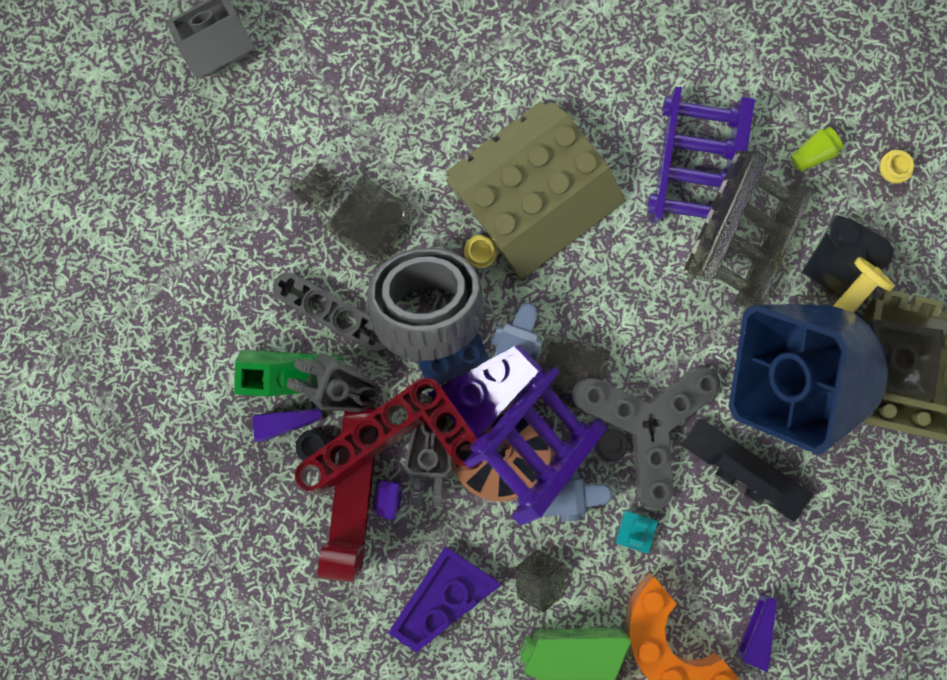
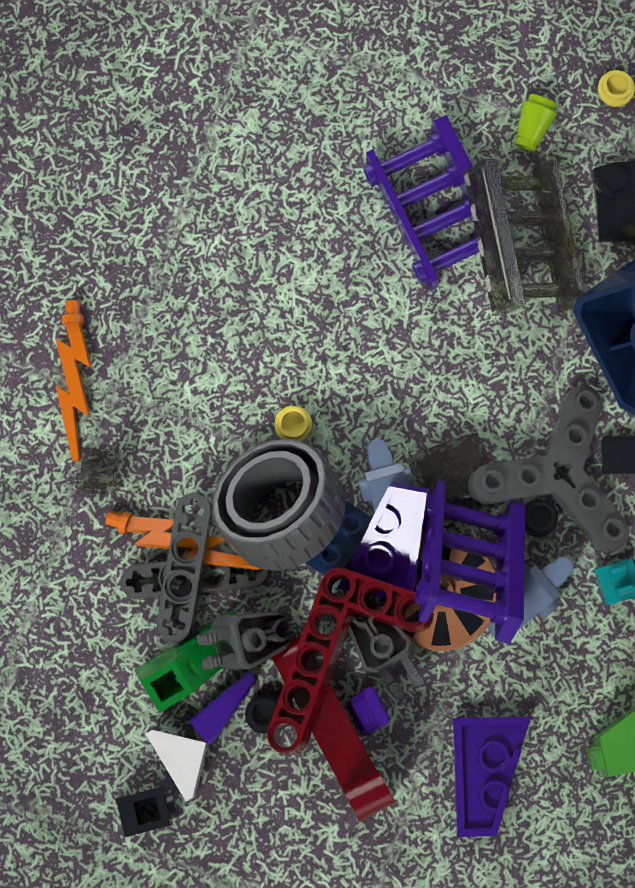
camera: 30 degrees left, 5 degrees down
(167, 457) = (132, 814): none -> black brick
(230, 437) = (182, 760): none -> white slope
(323, 296) = (190, 568): none -> dark grey beam
(325, 265) = (158, 537): none -> orange piece
(353, 89) = (69, 355): none -> orange piece
(370, 220) = (169, 465): clear smoke slope -> none
(536, 187) = (302, 330): olive slope -> none
(540, 580) = (563, 688): clear smoke panel -> none

